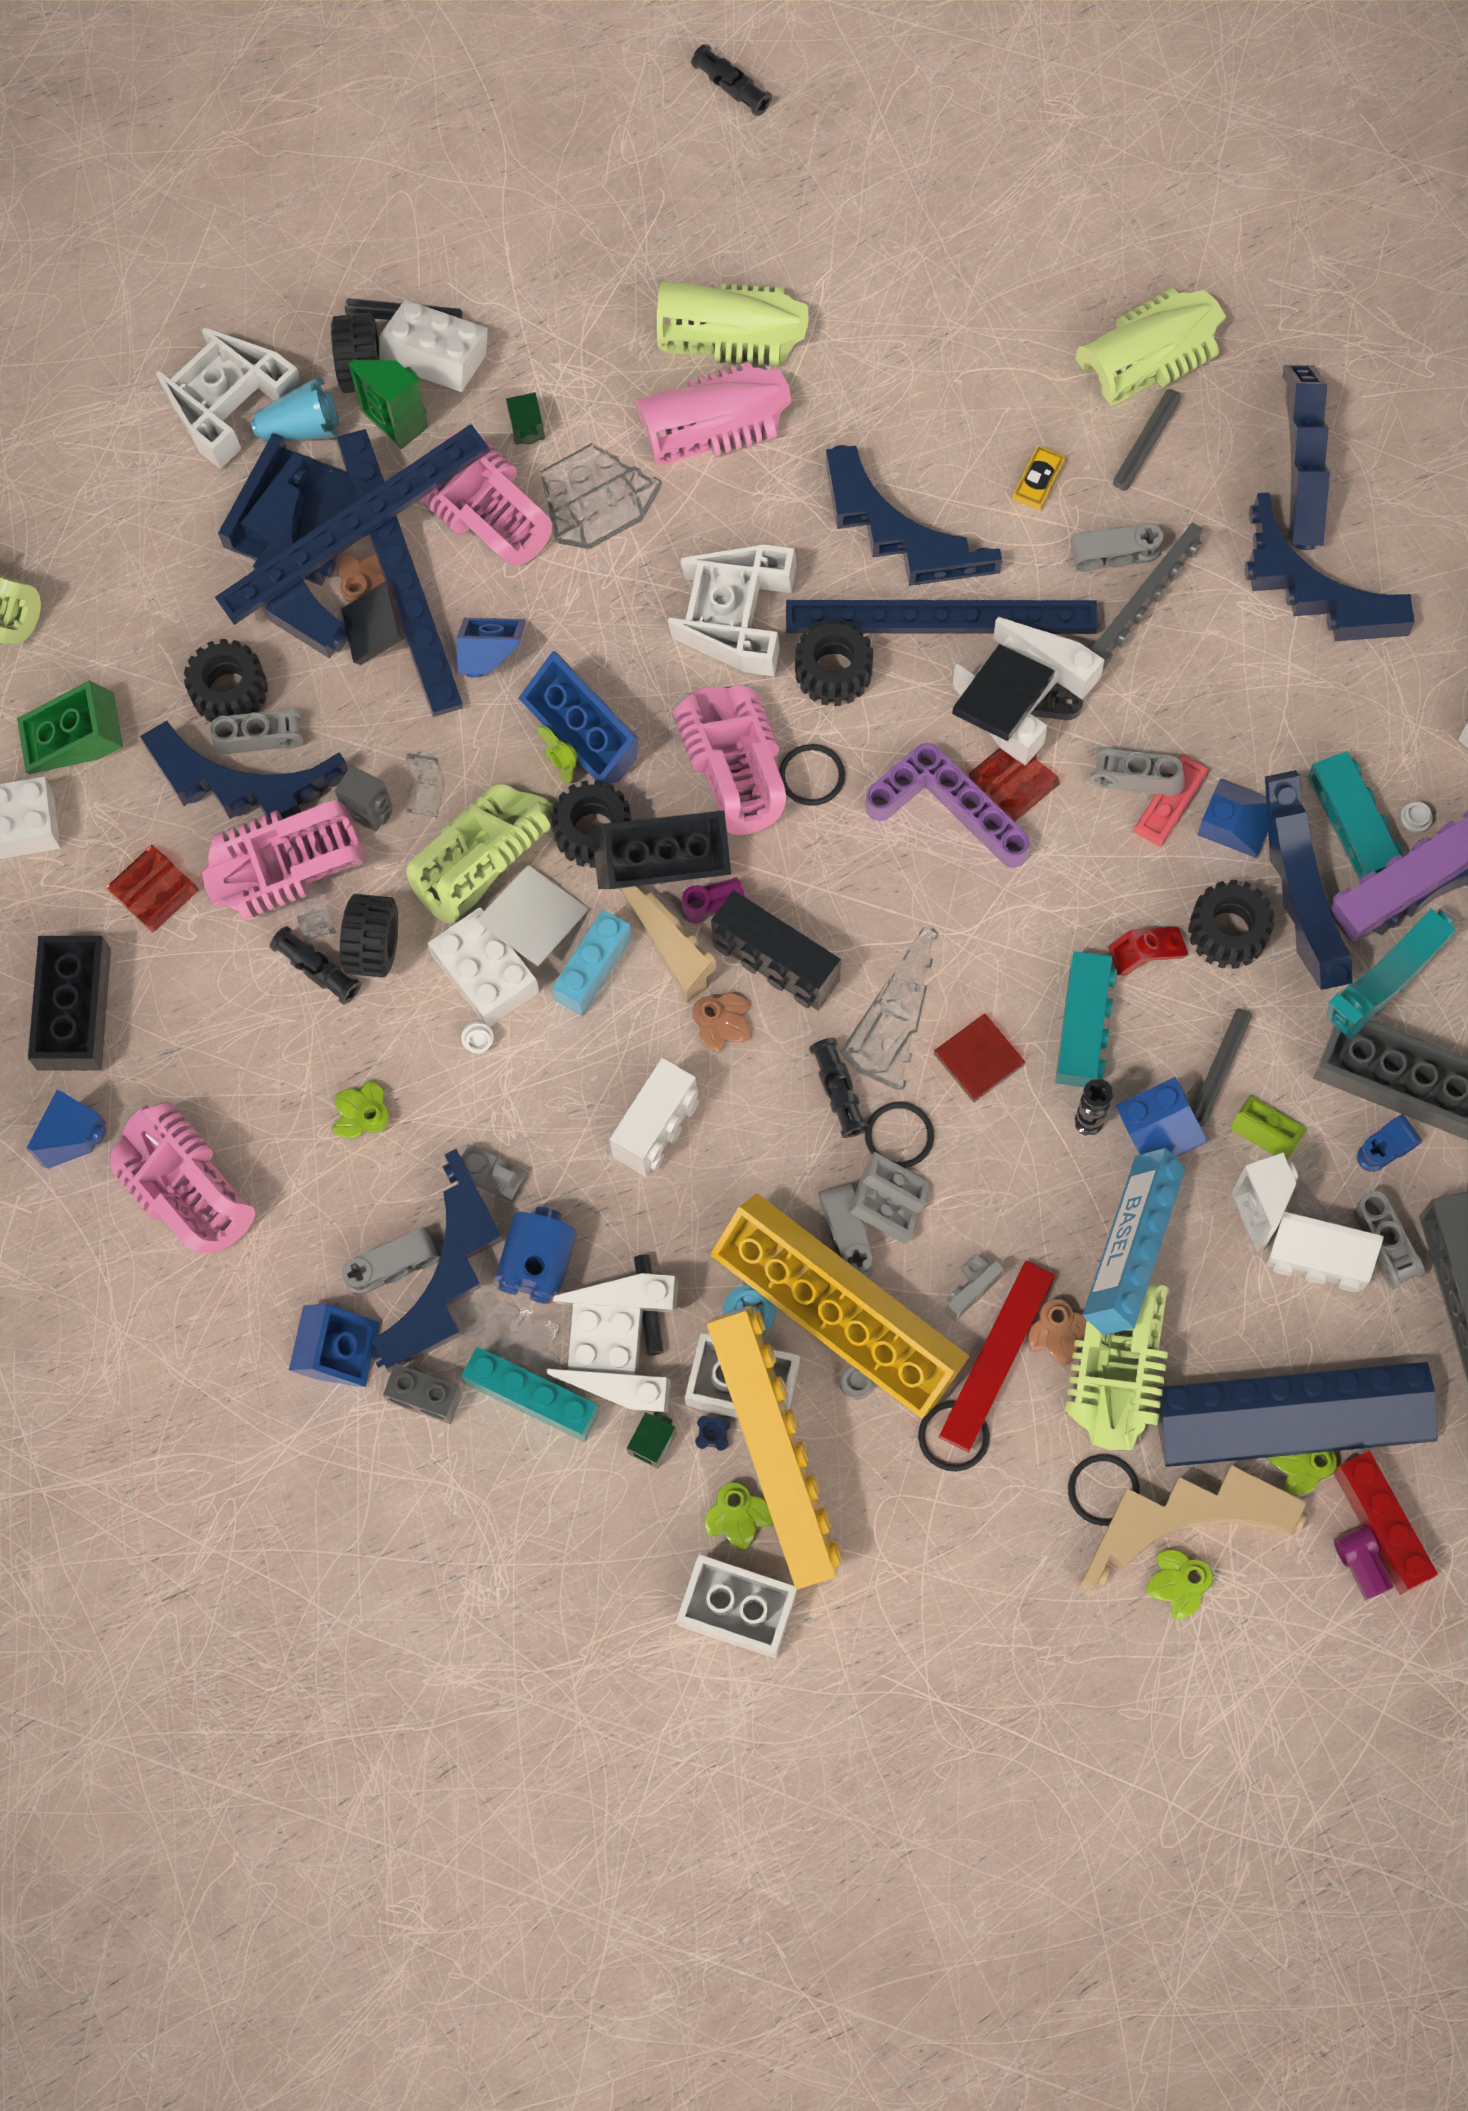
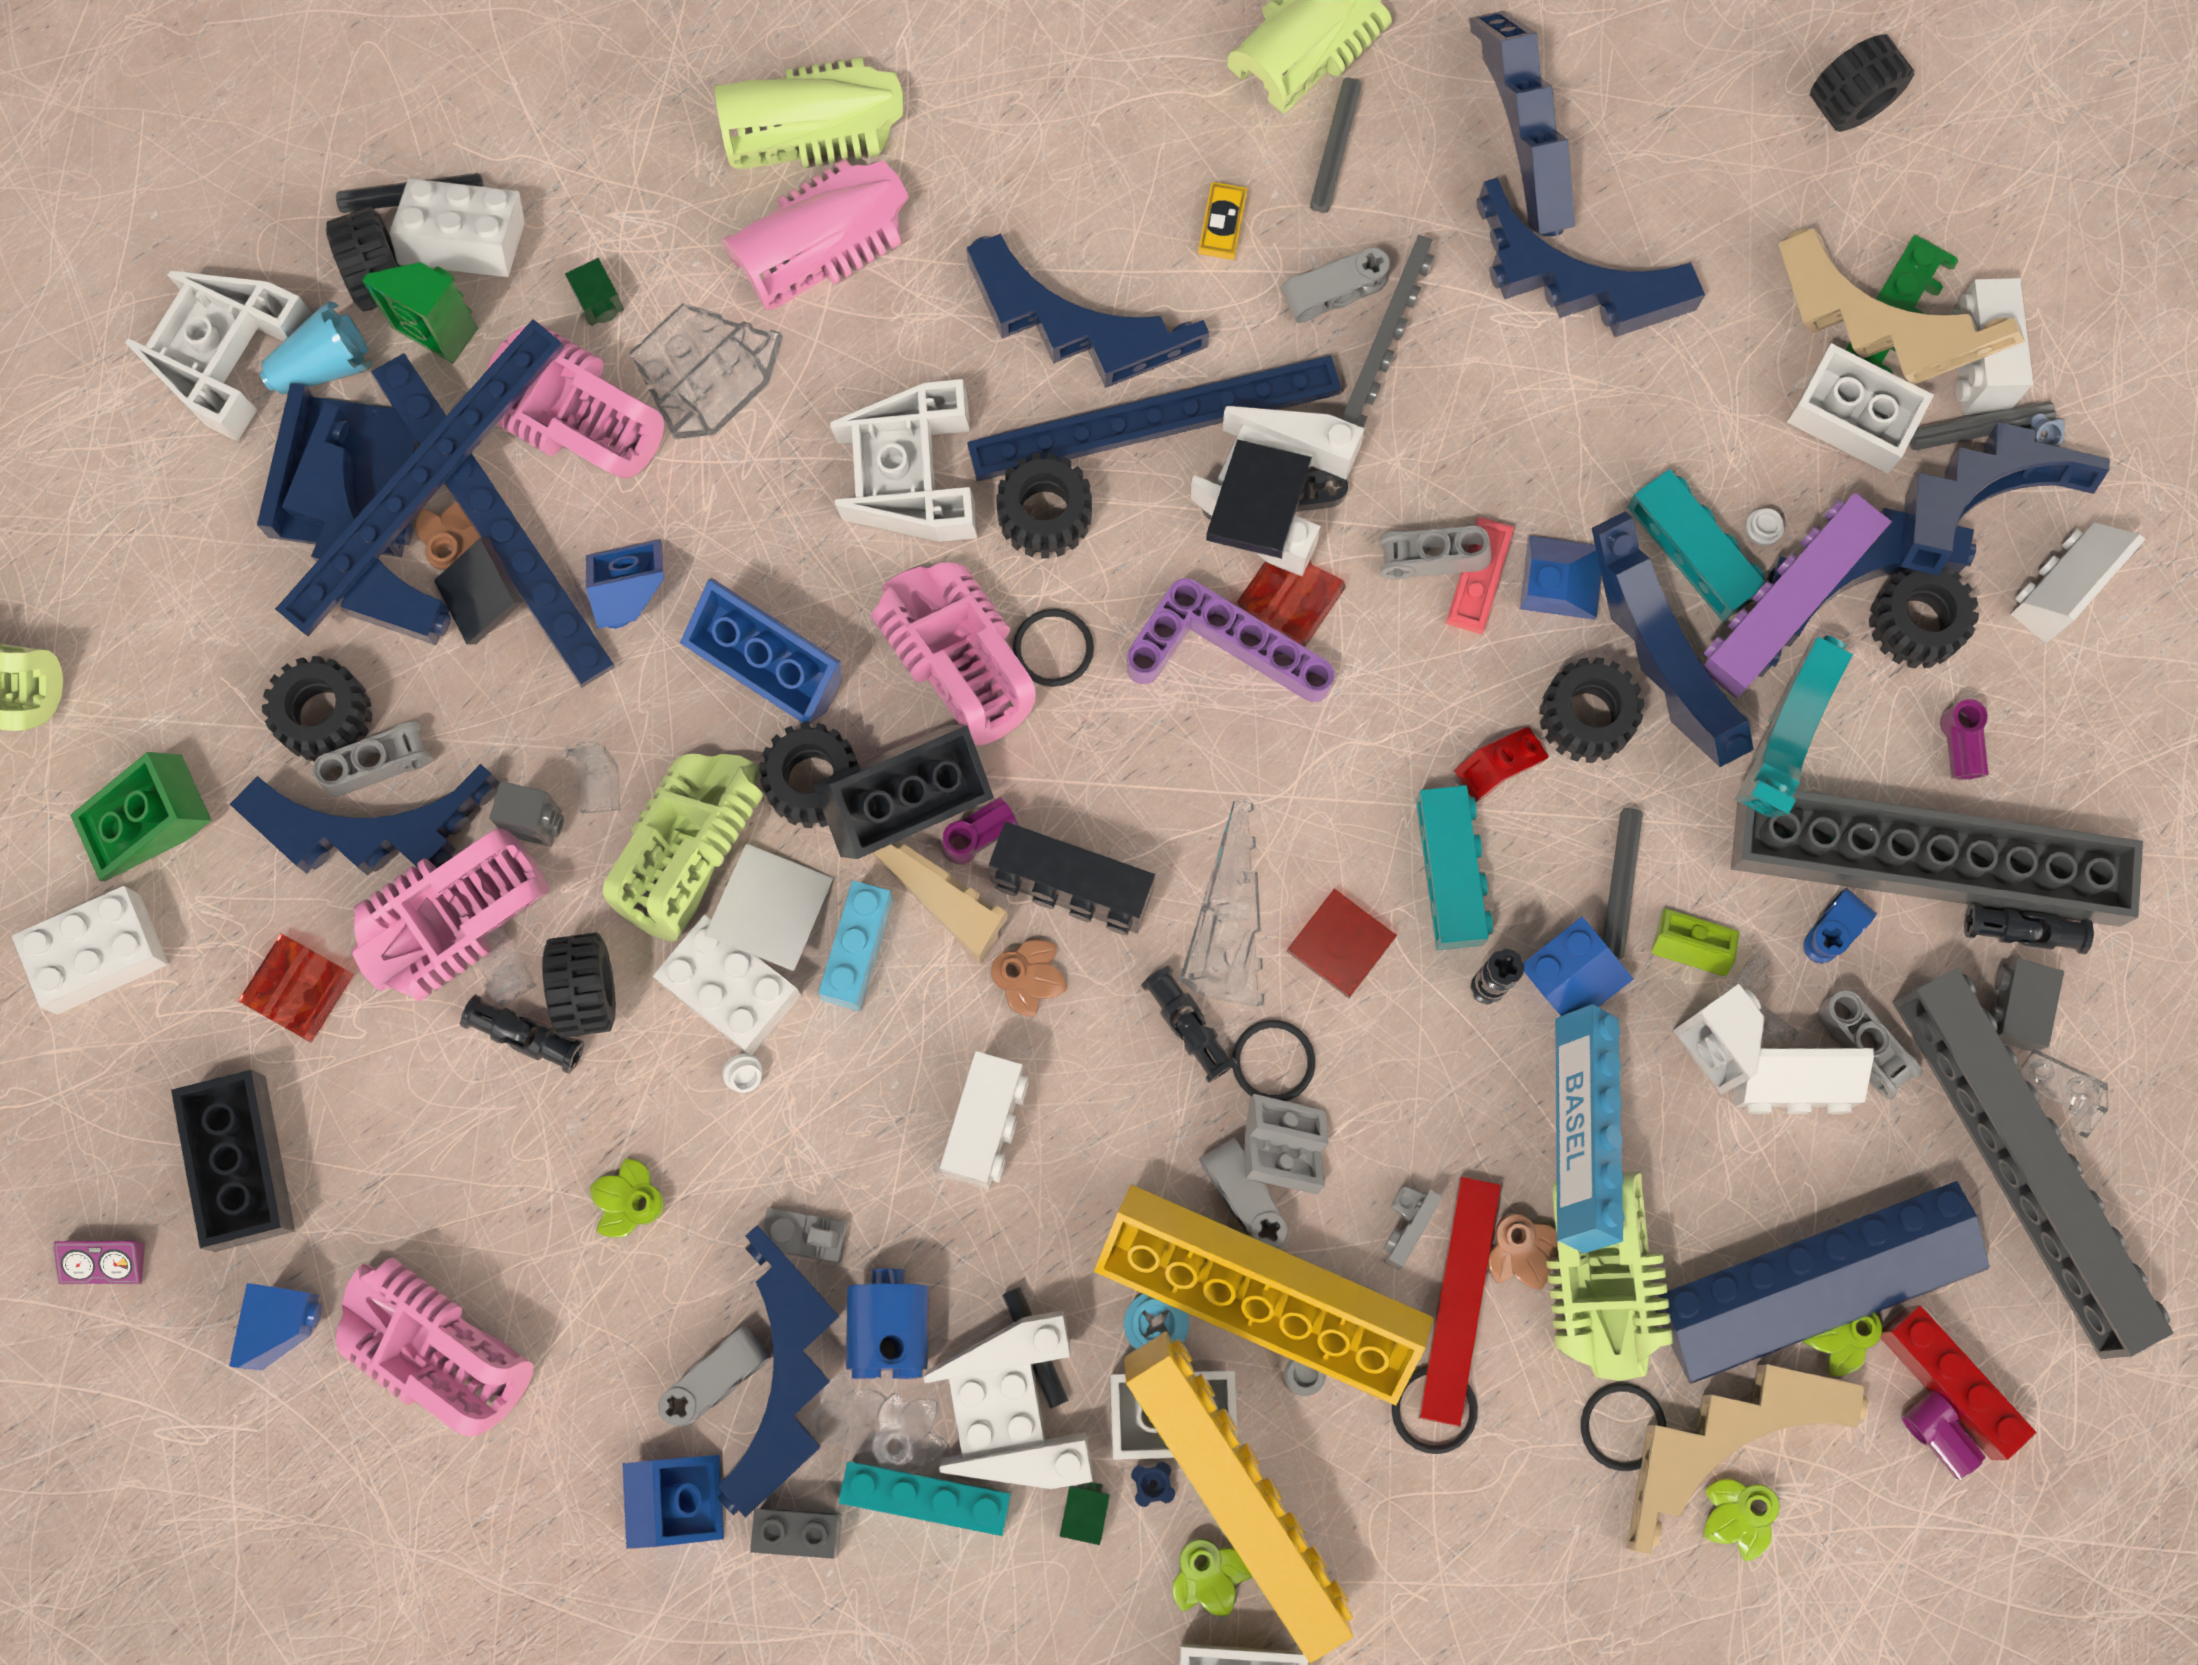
camera: 20 degrees left, 5 degrees up
(561, 754) = (751, 701): lime plate -> none

